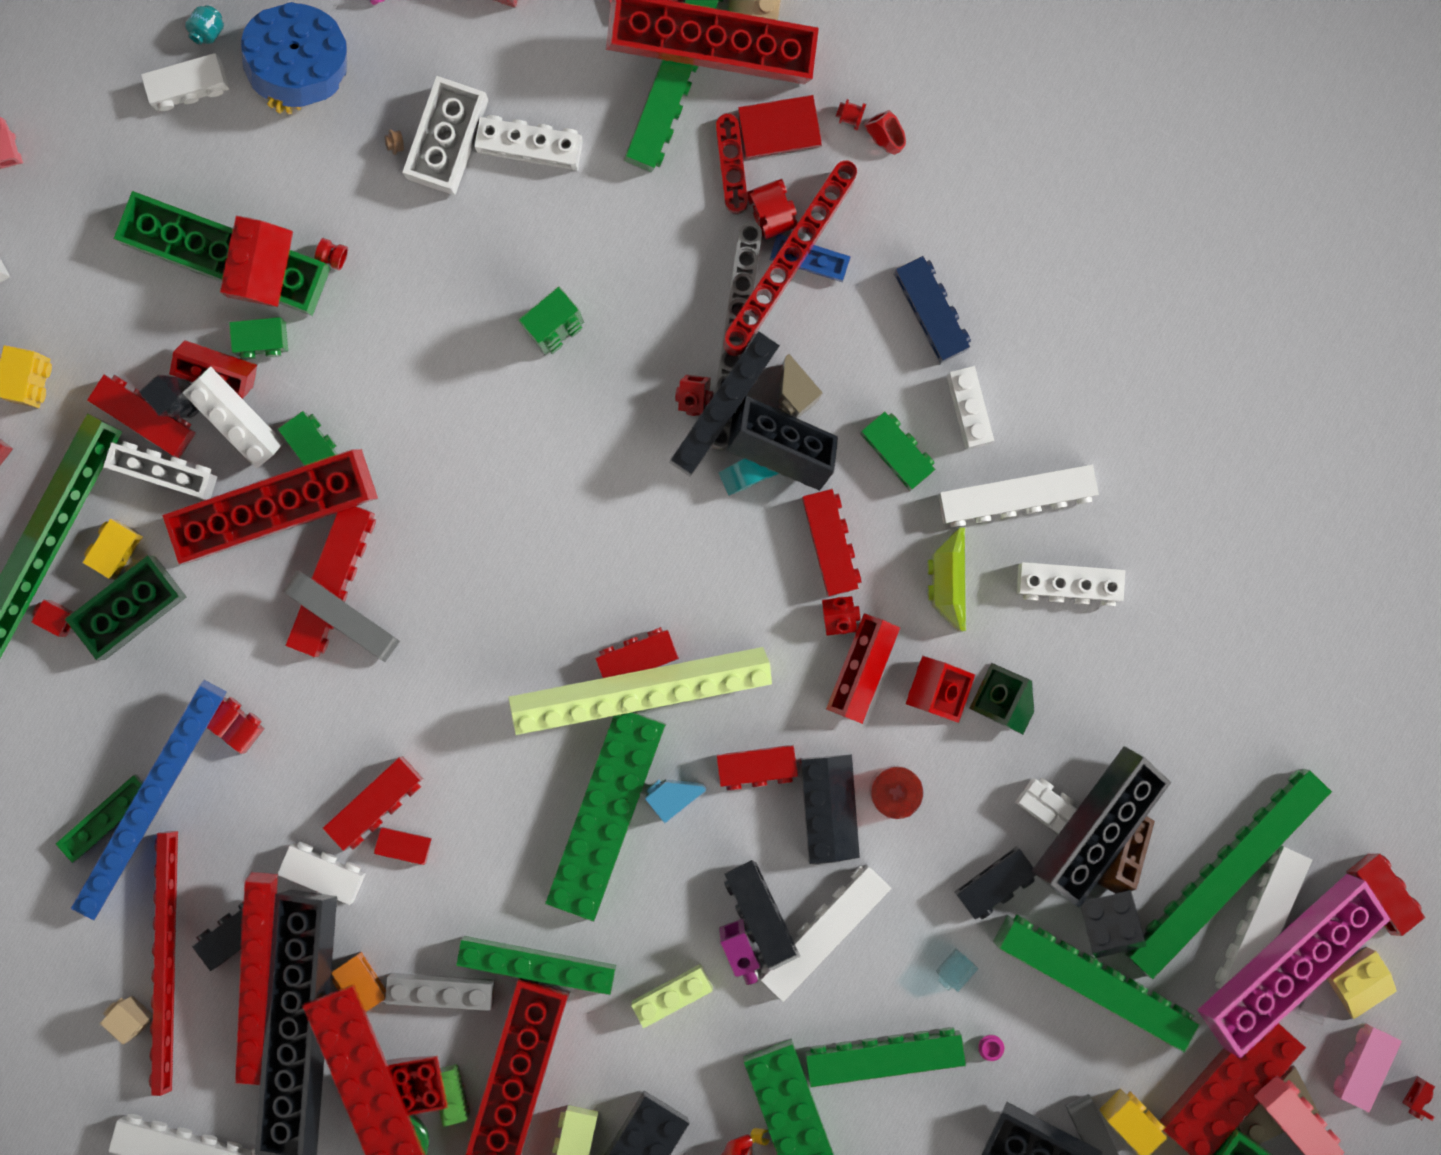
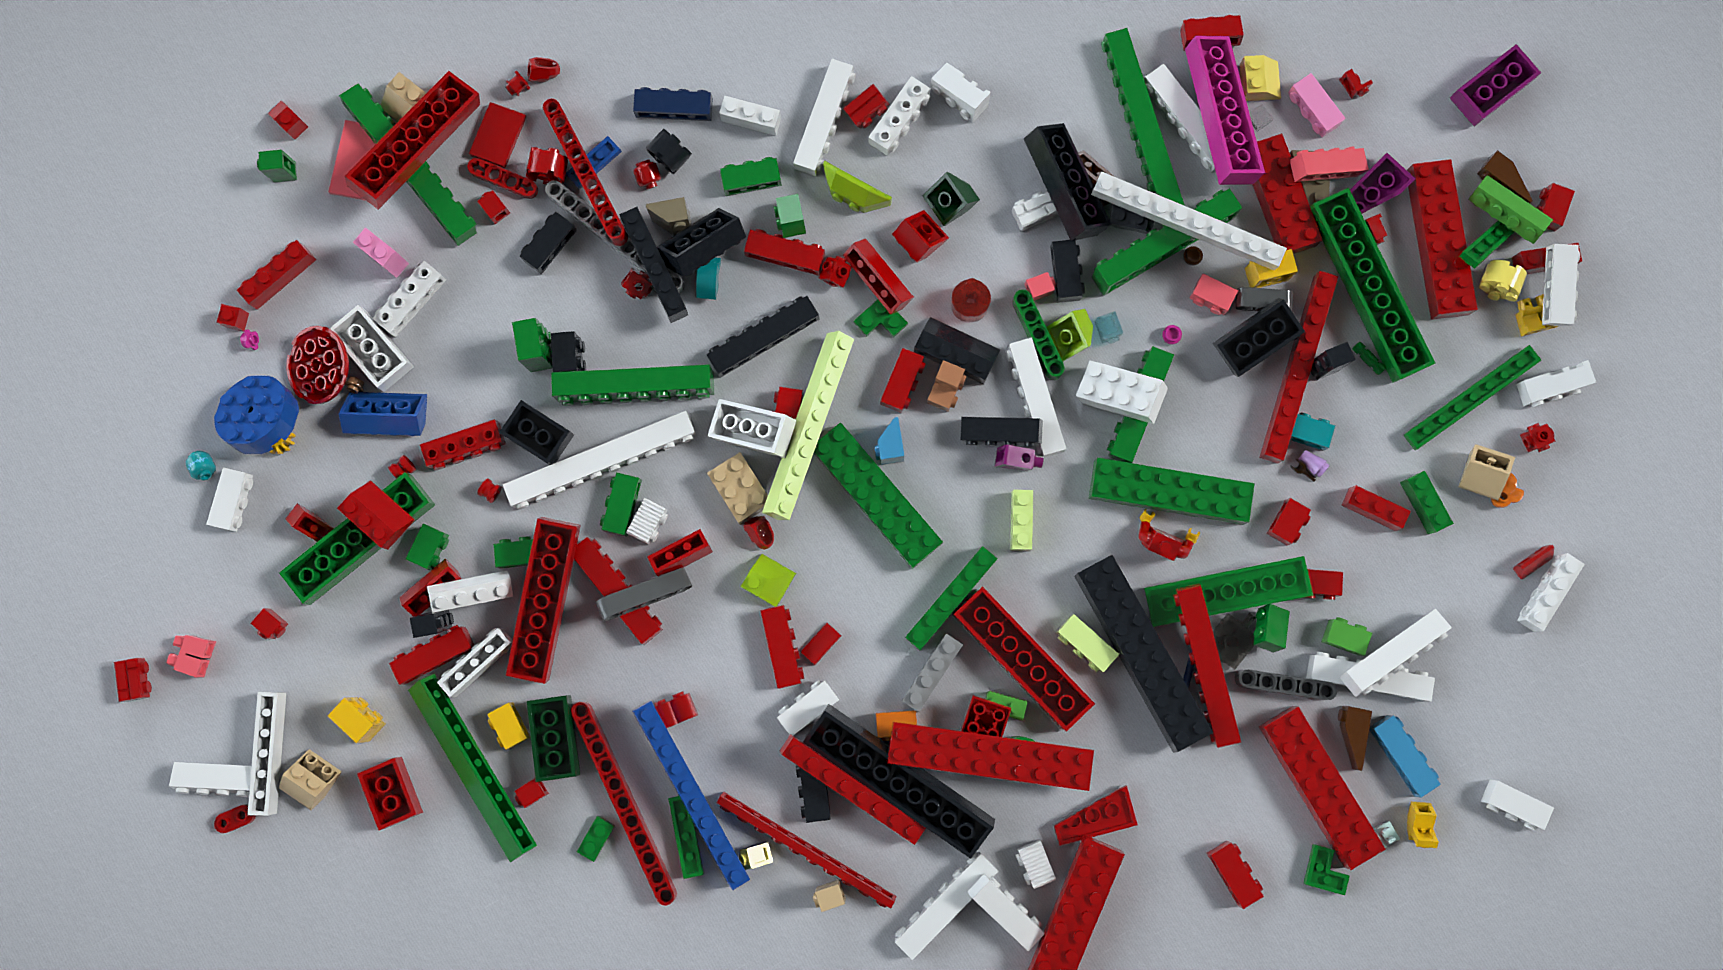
camera: 55 degrees left, 5 degrees down
(45, 719) = (595, 838): none -> green plate
(73, 213) = (269, 624): none -> red brick
(90, 732) = (631, 809): none -> red beam
(125, 909) = (755, 856): none -> bracket
(209, 188) = (308, 523): none -> red slope
(362, 368) = (489, 490): none -> red wheel
(381, 195) = (384, 413): none -> blue slope
(391, 87) = (317, 365): none -> red brick
(397, 306) = (462, 444): none -> red brick
(411, 628) = (680, 553): none -> red brick
(428, 568) = (647, 521): none -> white brick
(430, 526) = (620, 504): none -> green brick
(440, 744) = (768, 580): none -> lime slope
(455, 383) = (536, 433): none -> black brick
(468, 472) = (599, 459): none -> white brick
(489, 702) = (759, 531): none -> red rock
(525, 651) = (739, 488): none -> tan brick
(560, 80) = (380, 252): none -> bright pink brick
(565, 366) = (567, 352): none -> black brick
(570, 454) = (633, 384): none -> green brick
(599, 628) = (752, 428): none -> white brick
(685, 262) = (547, 242): none -> black brick
(691, 174) = (493, 206): none -> red brick
(717, 575) = (763, 336): none -> black brick
(777, 820) = (947, 382): none -> nougat brick
(819, 692) = (878, 314): none -> green plate
(831, 329) = (647, 174): none -> red head
(871, 339) = (668, 151): none -> black brick
(876, 525) = (790, 215): none -> brick
(885, 1030) = (1122, 392): none -> white brick
(898, 906) = (1038, 325): none -> green beam
(922, 931) = (1071, 333): none -> lime slope
(959, 863) = (1040, 286): none -> coral brick
(1058, 538) = (867, 106): none -> red brick
(1066, 1070) = (1213, 294): none -> coral brick
(1100, 1020) = (1193, 255): none -> reddish brown plate
(1128, 1001) = (1189, 221): none -> white brick
(1139, 637) = (960, 92): none -> white wedge

